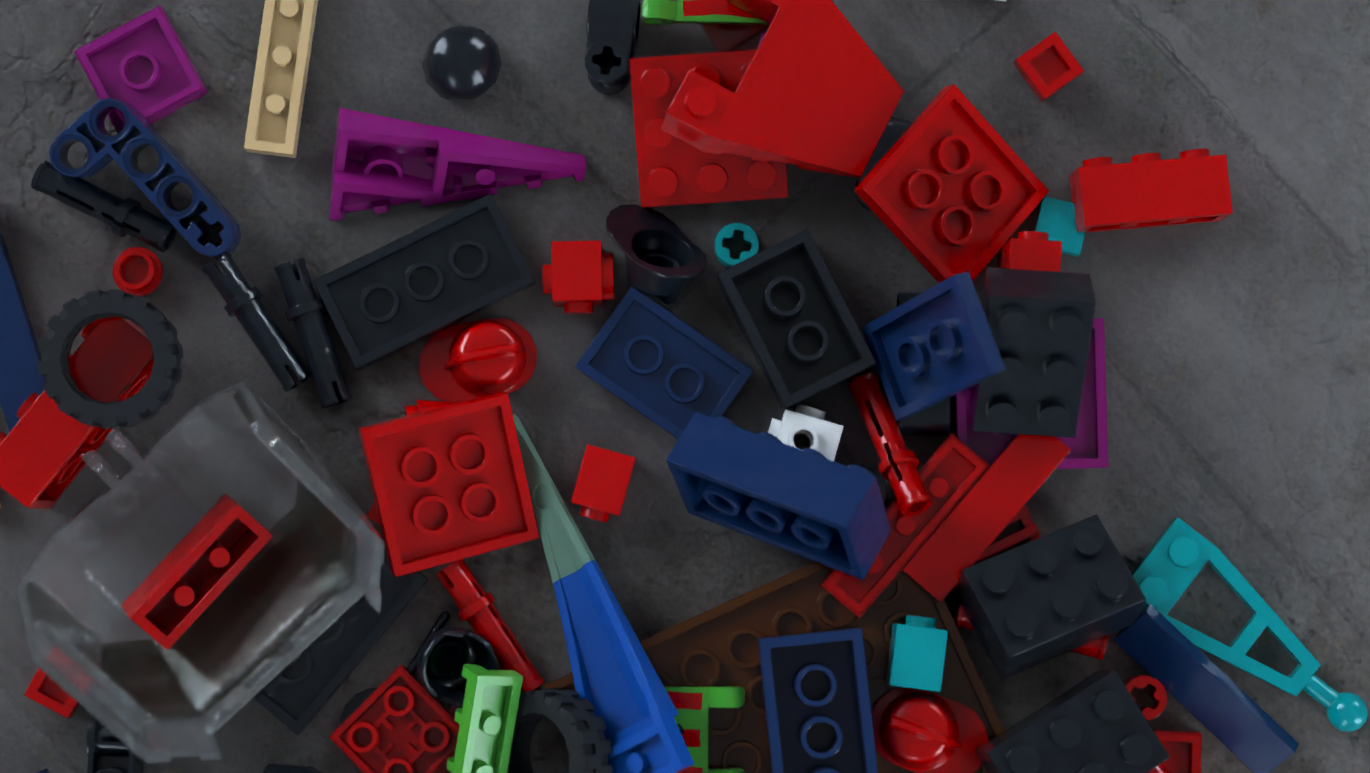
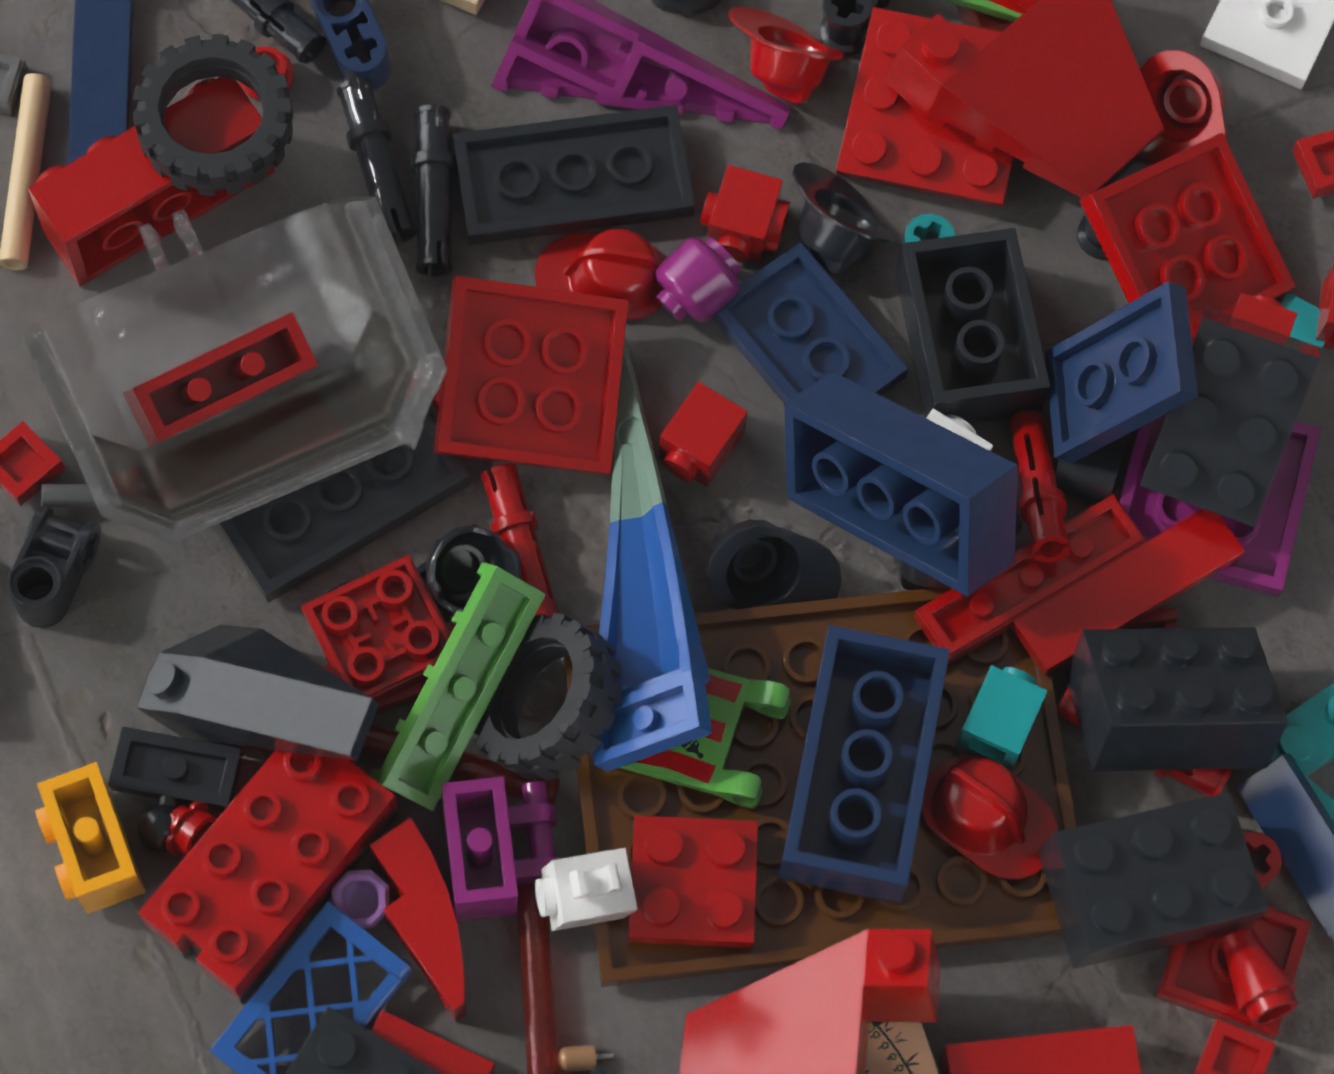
camera: 15 degrees right, 15 degrees down
(558, 349) = (697, 280): none -> magenta head
(564, 110) = (783, 54): none -> red piece
(688, 582) = (770, 566): none -> black piece
(916, 58) = (1186, 99): none -> red piece

